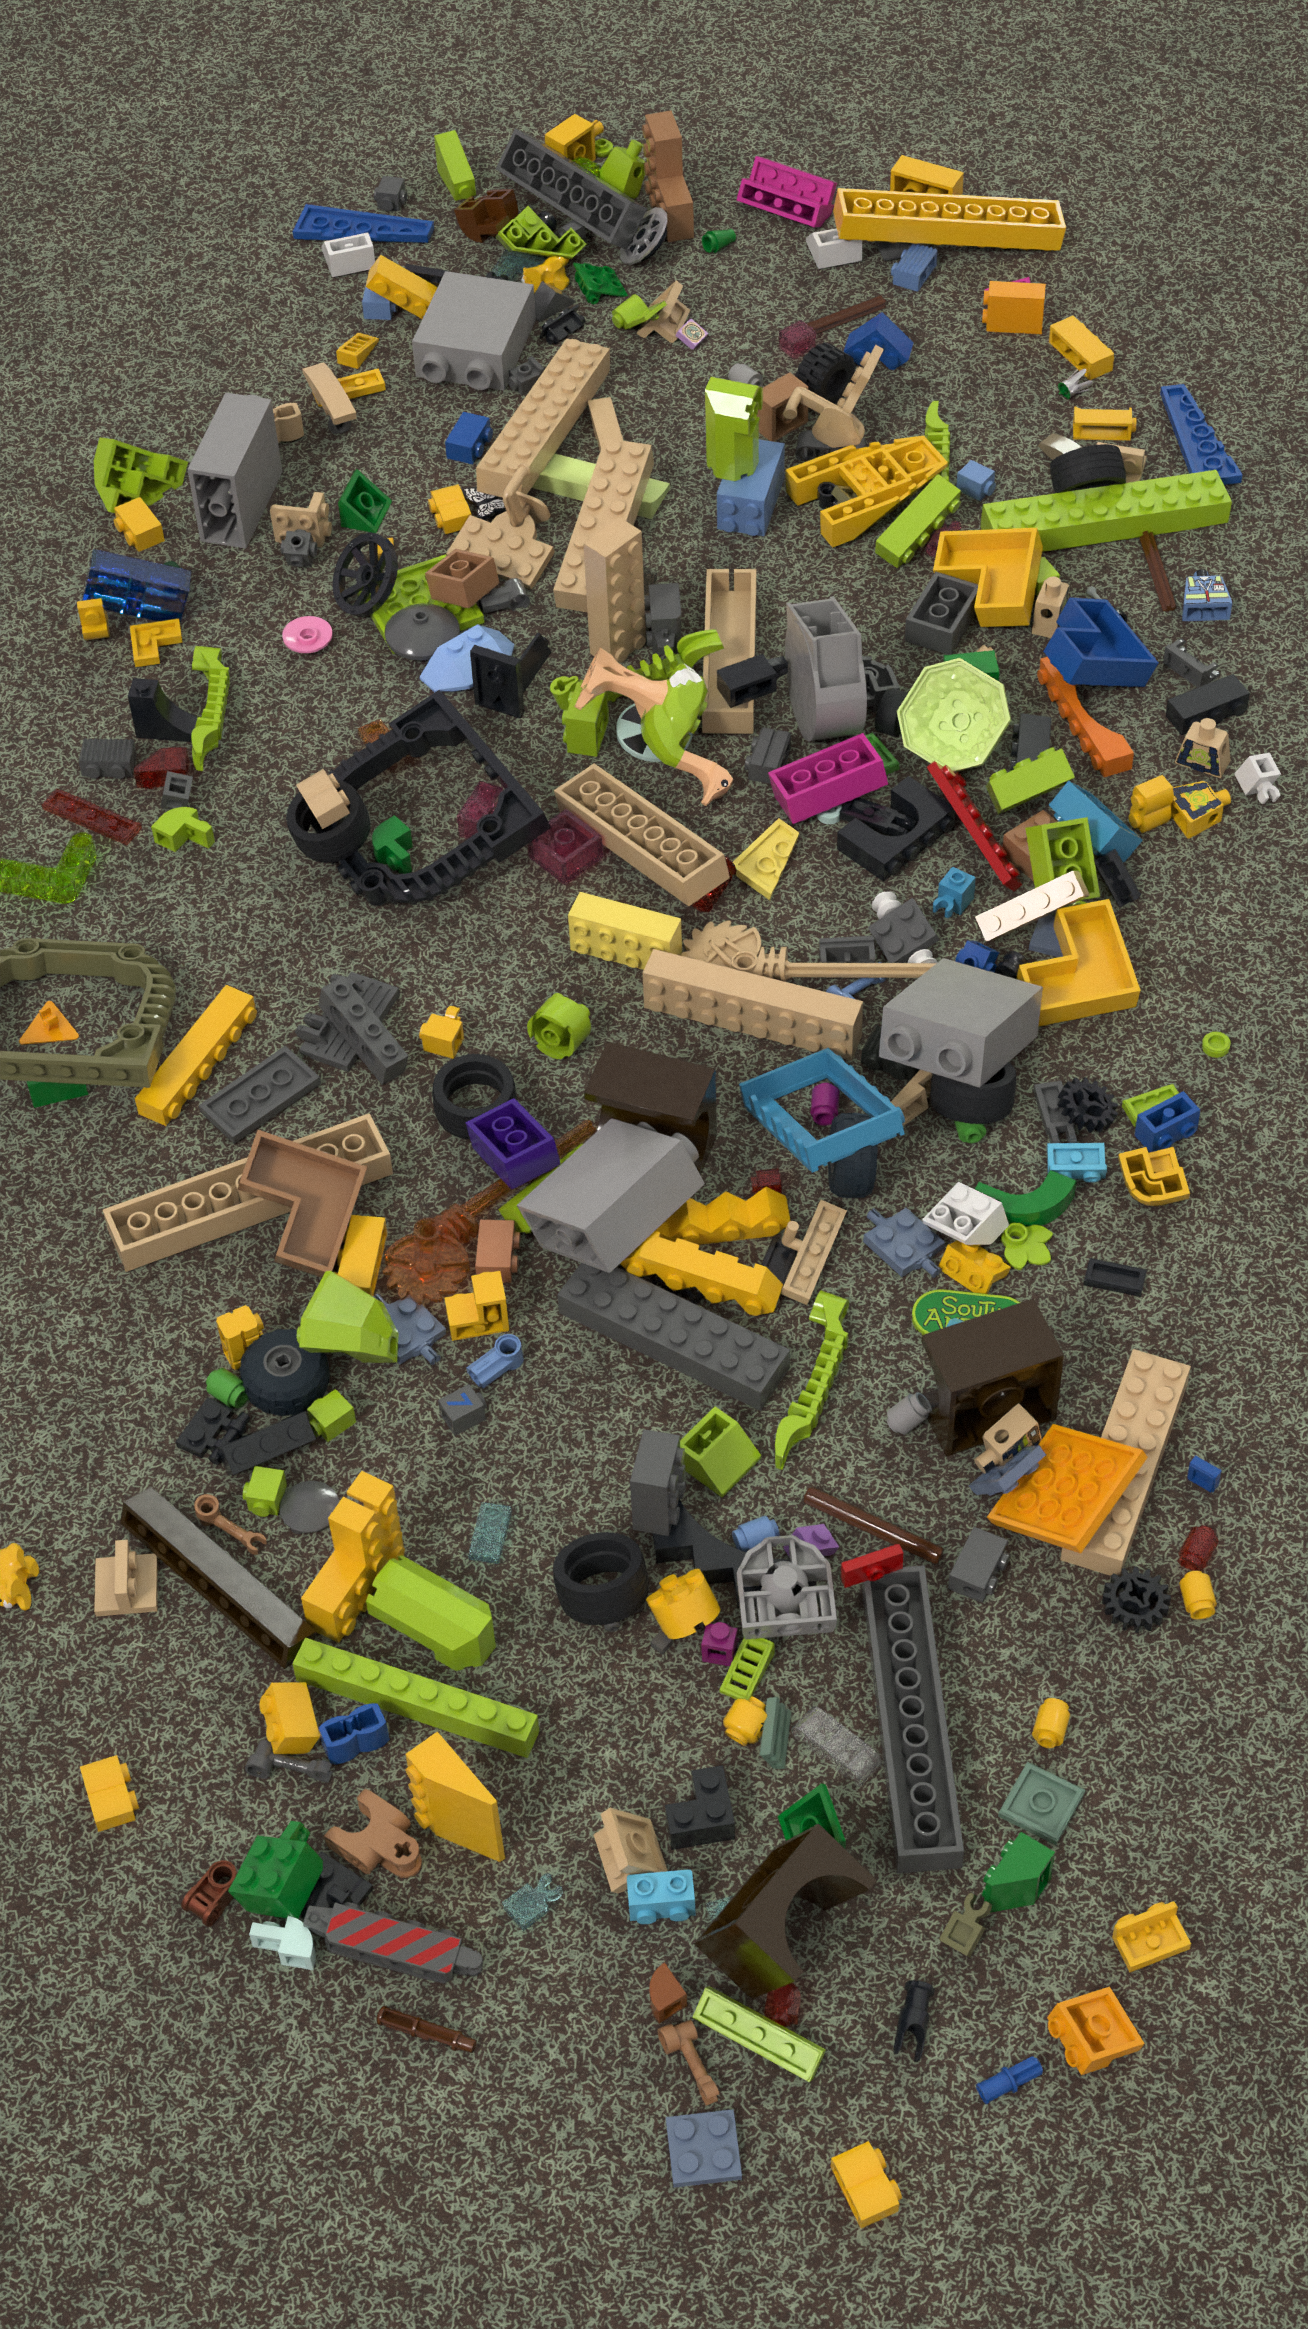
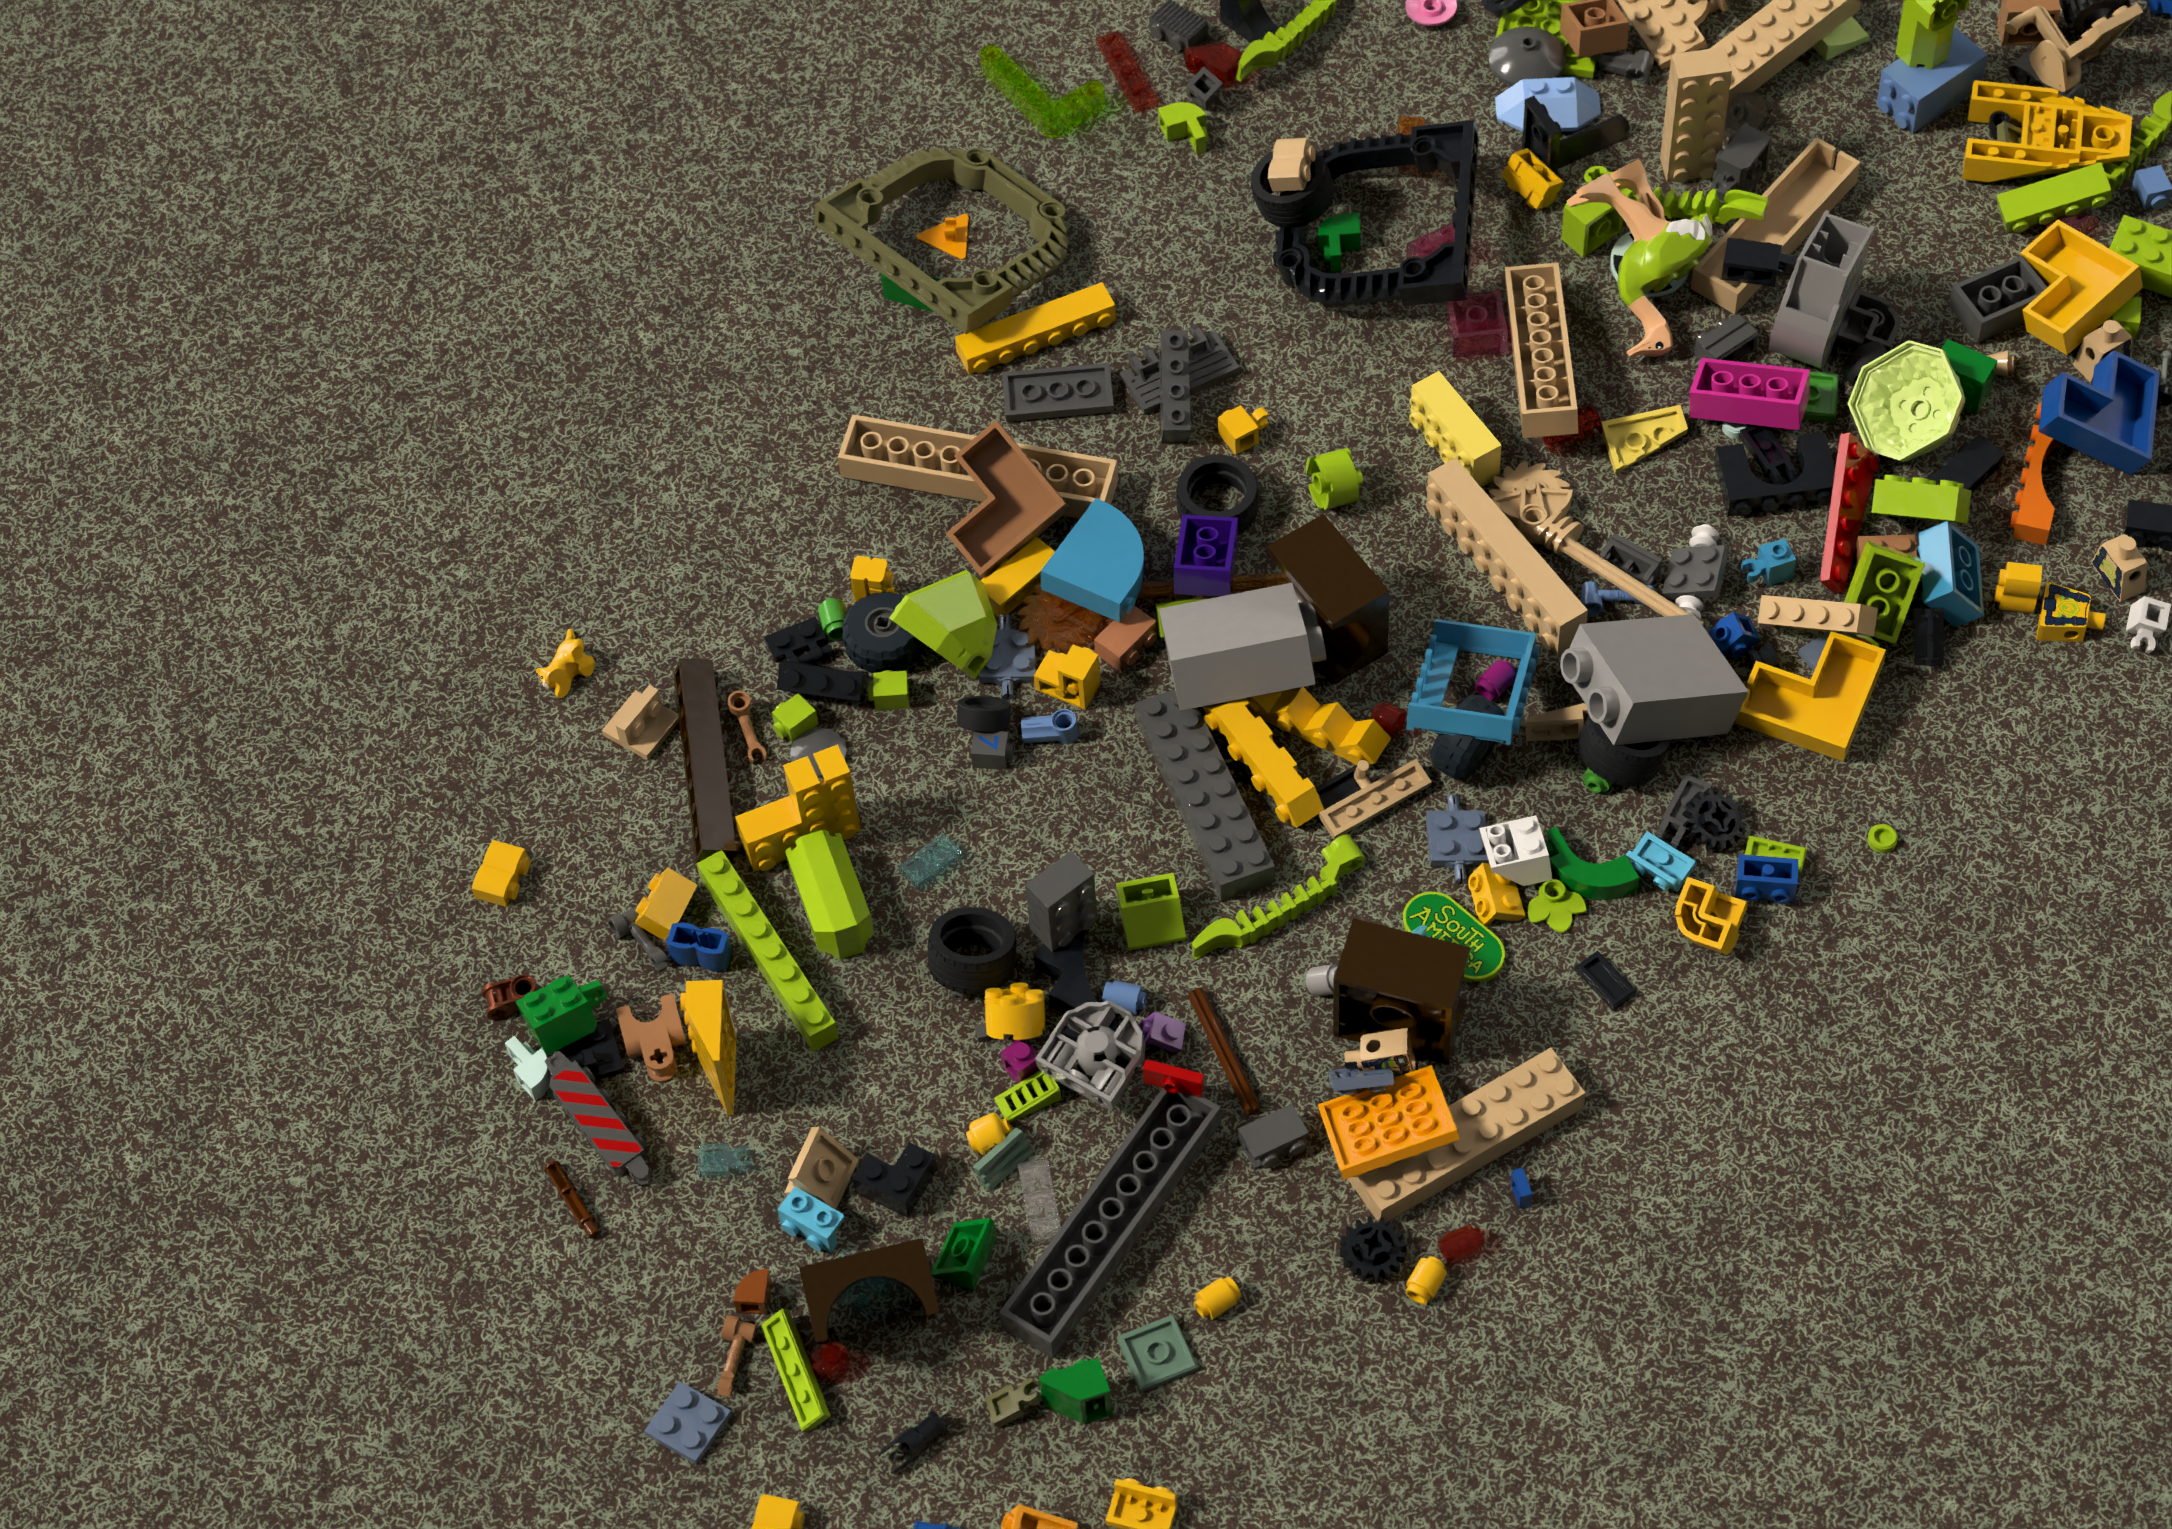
camera: 40 degrees right, 5 degrees up
(431, 1201) = (1098, 563): none -> dark azure brick
(433, 1383) = (983, 713): none -> black tyre
(509, 718) = (1532, 179): none -> yellow brick

